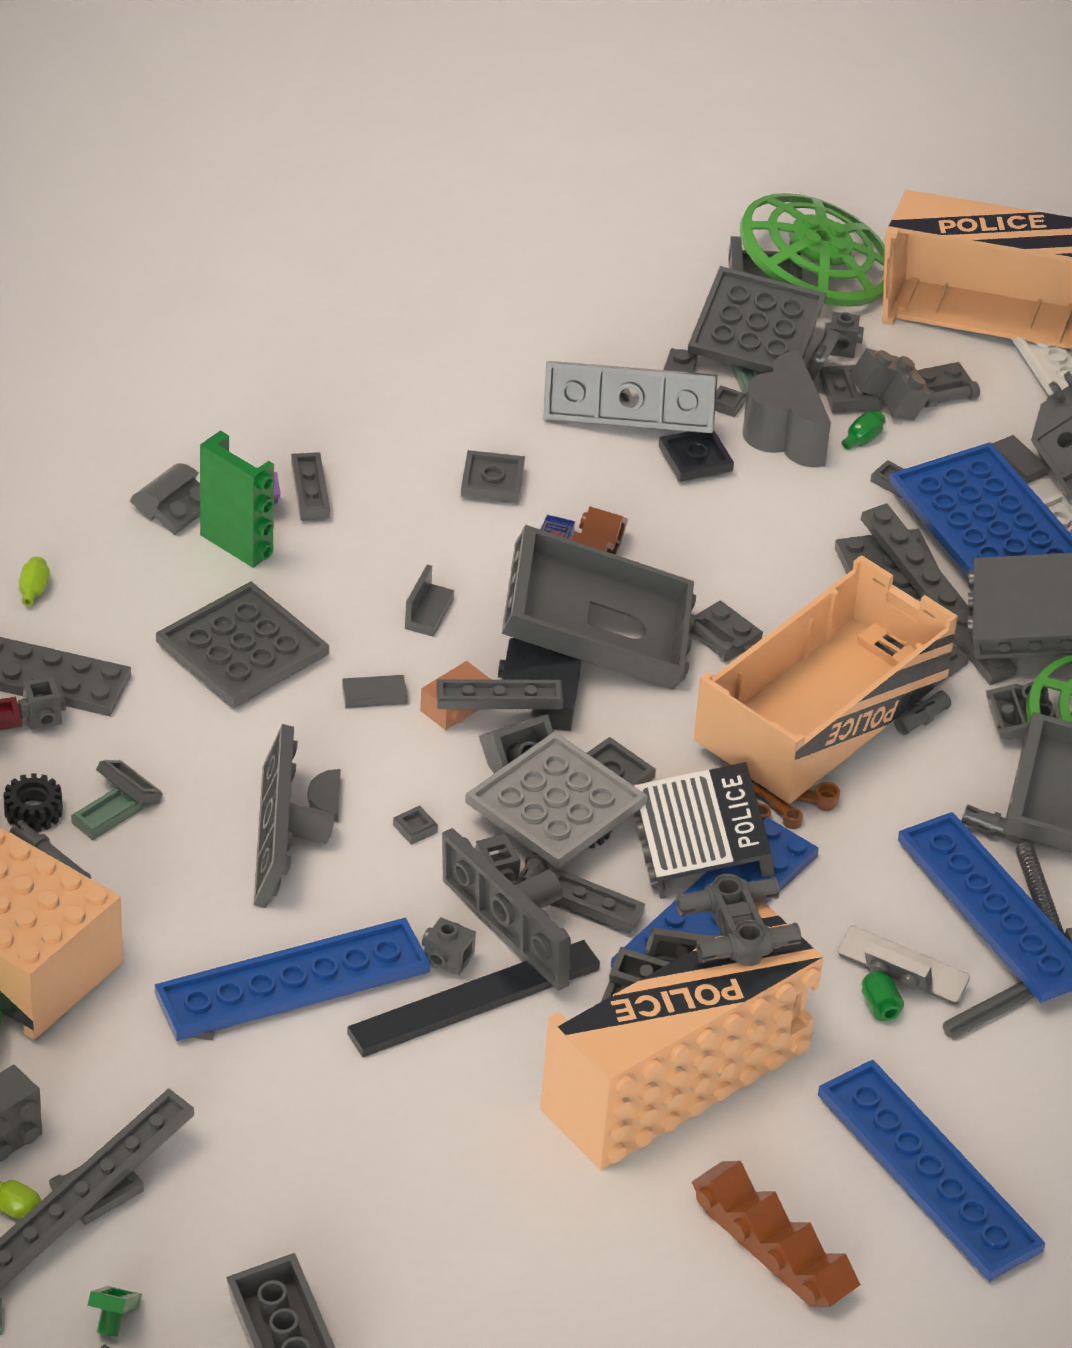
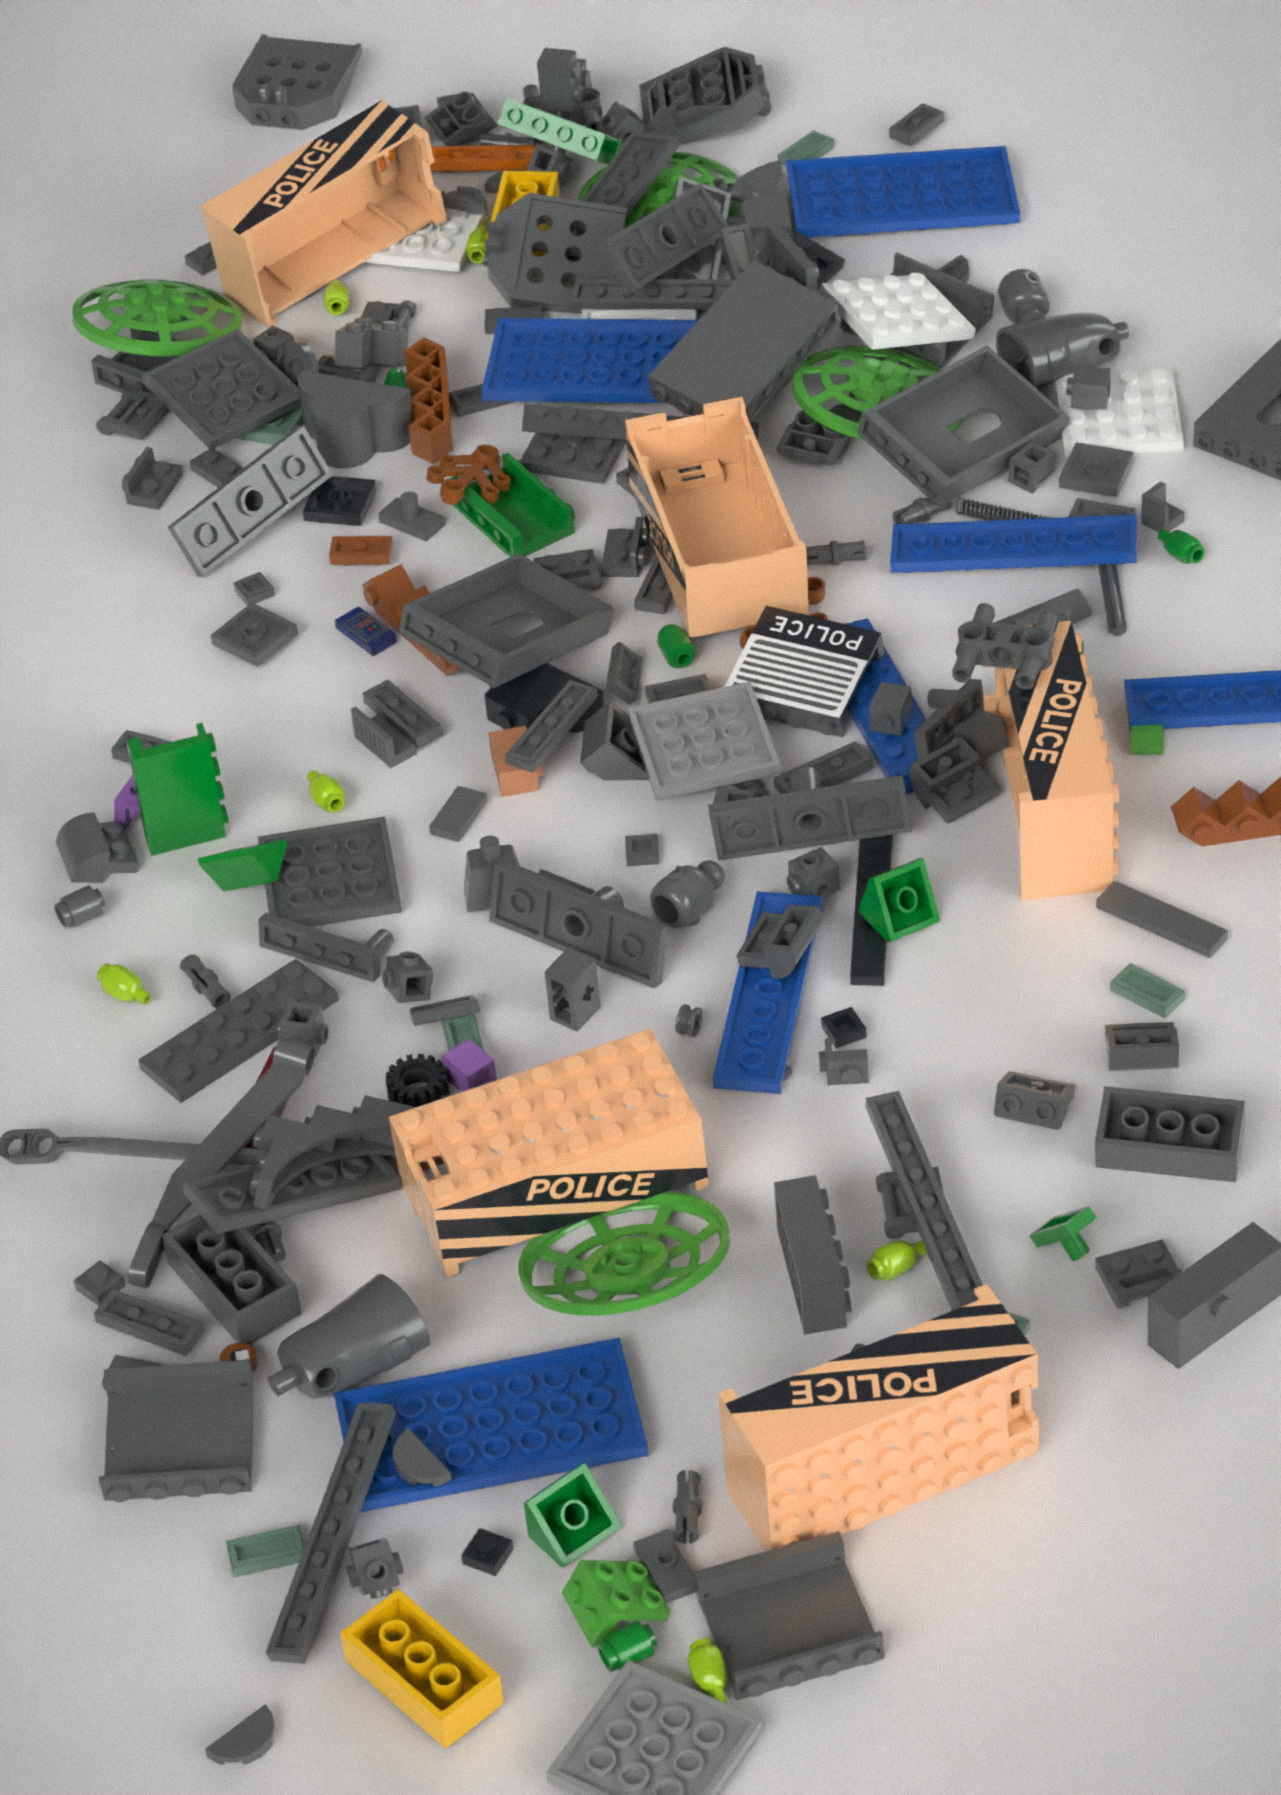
camera: 50 degrees left, 0 degrees up
(66, 824) = (469, 1066): none -> medium lavender panel
(71, 626) = (205, 981): none -> dark grey pin
(101, 517) = (79, 906): none -> dark grey brick
(144, 740) = (408, 977): none -> dark grey brick
(152, 704) = (323, 947): none -> dark grey piece
(193, 845) = (572, 989): none -> dark grey brick
(208, 585) = (245, 865): none -> green slope
(220, 948) = (689, 1020): none -> dark grey bush
(229, 1065) = (844, 1066): none -> dark grey bracket
(279, 1216) = (1032, 1099): none -> dark grey bracket
(281, 1048) = (843, 1027): none -> black plate
(311, 739) = (480, 871): none -> dark grey torso
(336, 599) = (326, 791): none -> lime plant
(337, 953) = (780, 939): none -> dark grey brick
(366, 871) = (686, 893): none -> dark grey piece
(391, 1266) = (1142, 1046): none -> dark grey brick
(452, 1017) = (900, 901): none -> green slope
(465, 604) = (402, 713): none -> dark grey plate
(479, 1247) = (1147, 990): none -> sand green tile
(552, 453) = (254, 588): none -> dark grey tile
(580, 1220) = (1162, 919): none -> dark grey tile
(619, 717) = (624, 673): none -> dark grey plate
(629, 336) = (150, 481): none -> dark grey bracket
(645, 493) = (360, 550): none -> dark orange plate
(677, 736) = (676, 646): none -> green brick
(688, 921) = (890, 708): none -> dark grey brick
(690, 293) = (133, 414): none -> dark grey plate
(713, 507) = (410, 518): none -> dark grey tile
(770, 562) = (523, 517): none -> green panel
(813, 515) = (483, 458): none -> dark orange plant
(814, 1112) = (1147, 739): none -> bright green tile
(855, 455) = (430, 400): none -> dark orange brick
(887, 789) = (836, 552): none -> dark grey pin
(947, 342) = (336, 298): none -> lime plant

